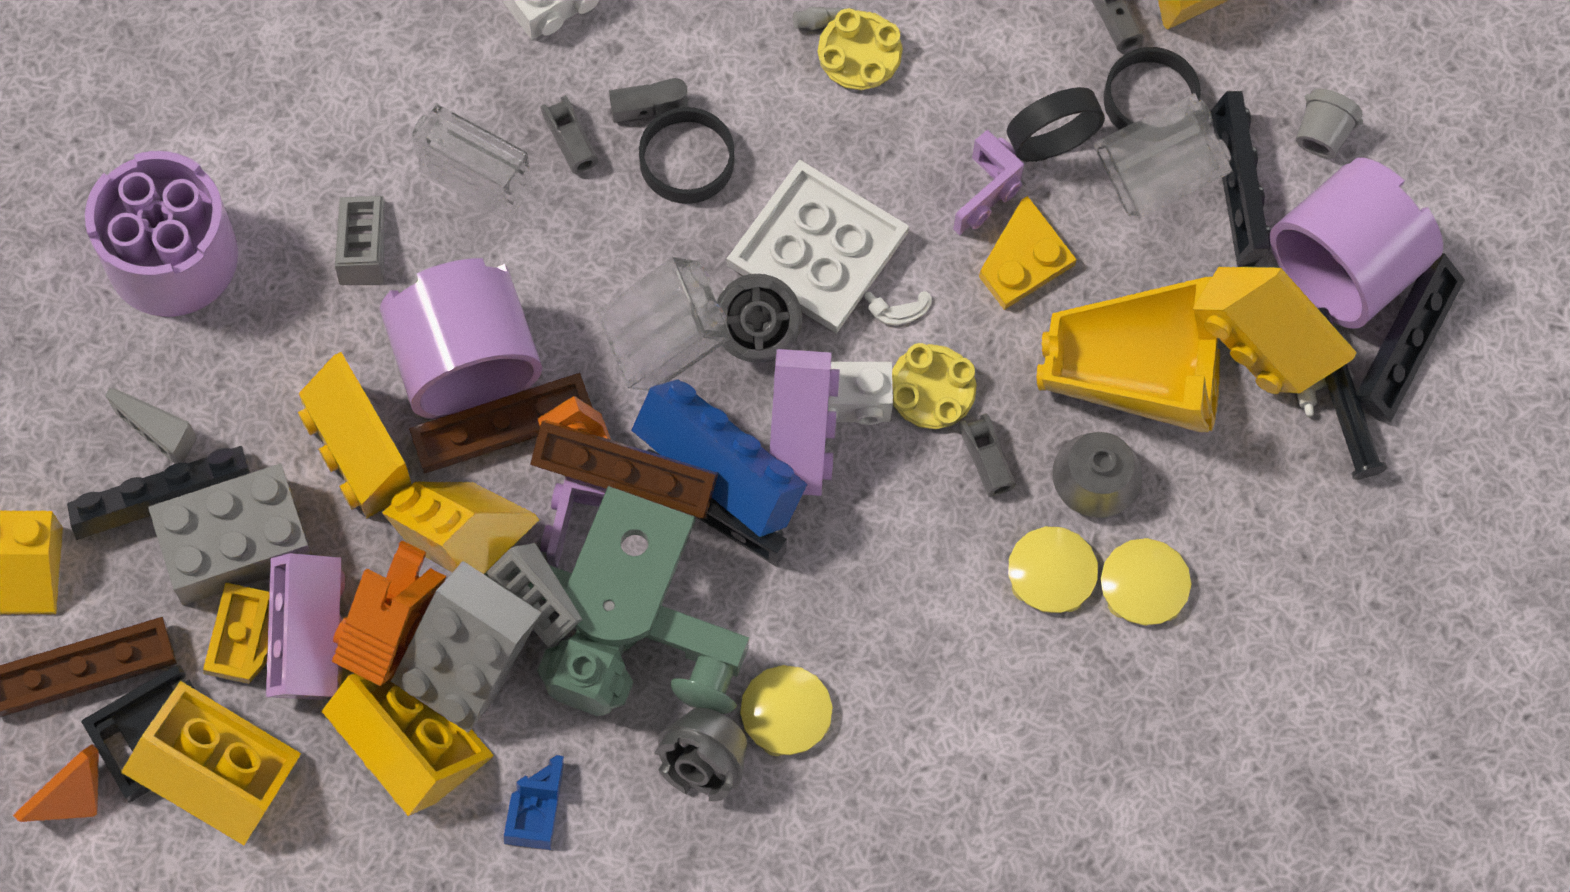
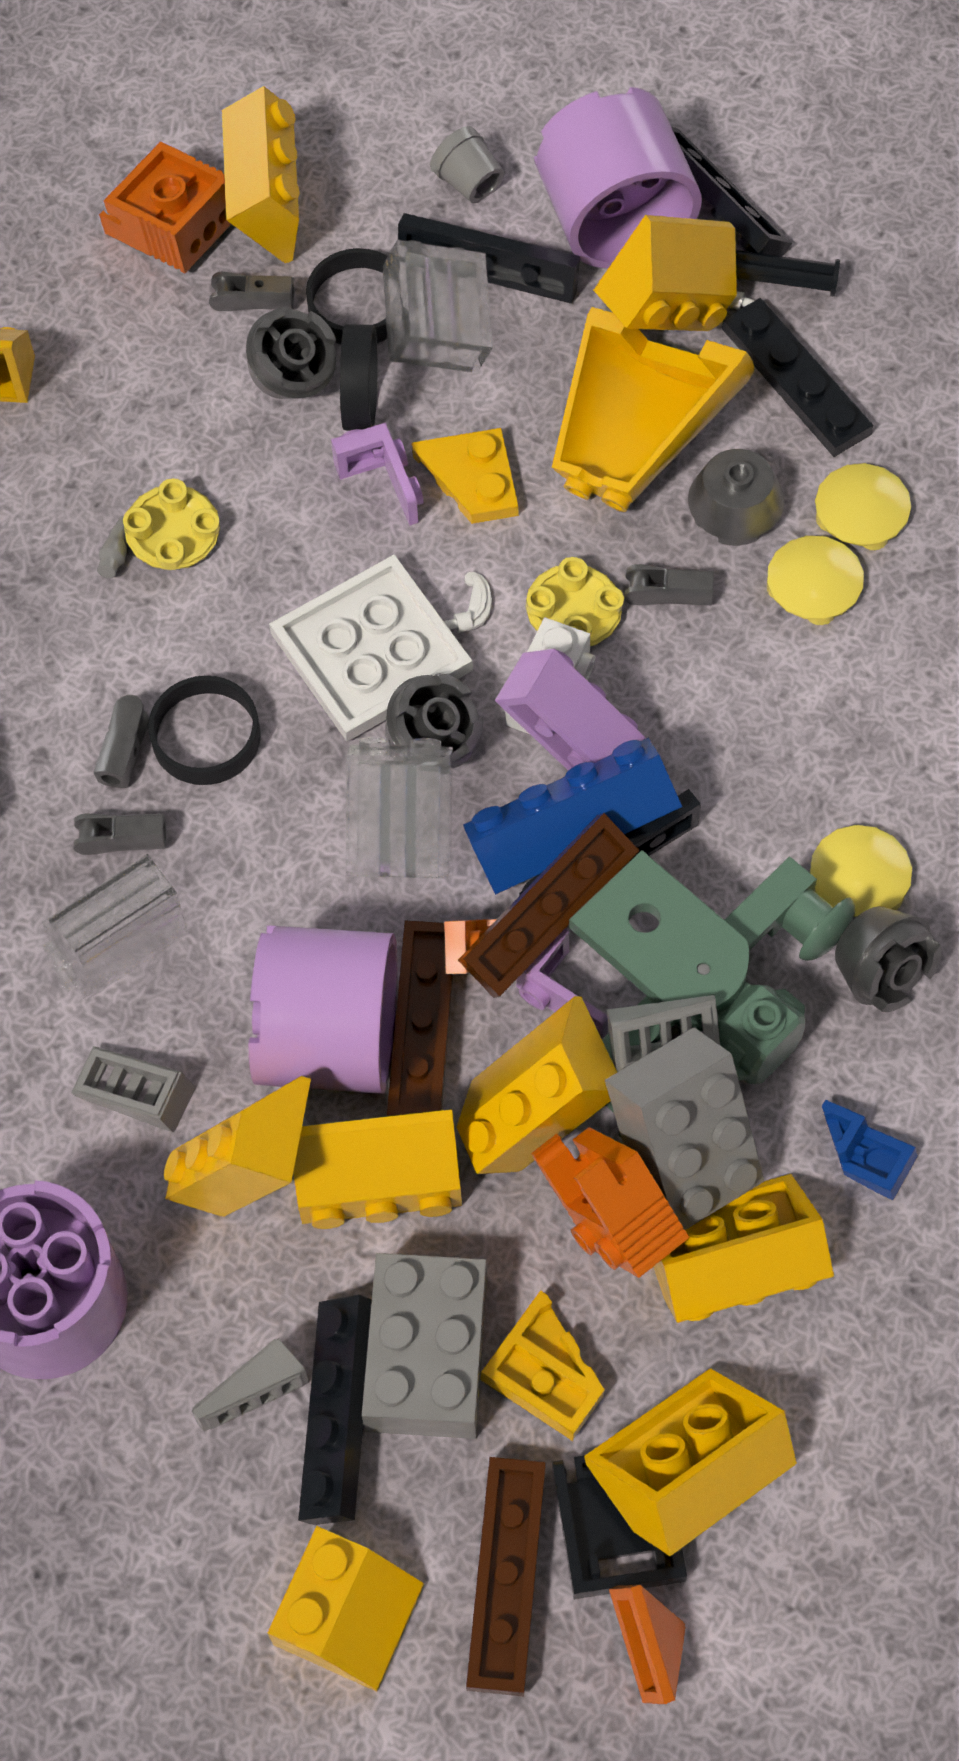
camera: 60 degrees left, 5 degrees down
(302, 626) = (577, 1302): lavender brick -> none
(318, 326) = (240, 1155): none -> yellow slope
(1053, 59) = (290, 353): none -> flat silver cone
(1251, 479) = (797, 377): none -> black plate

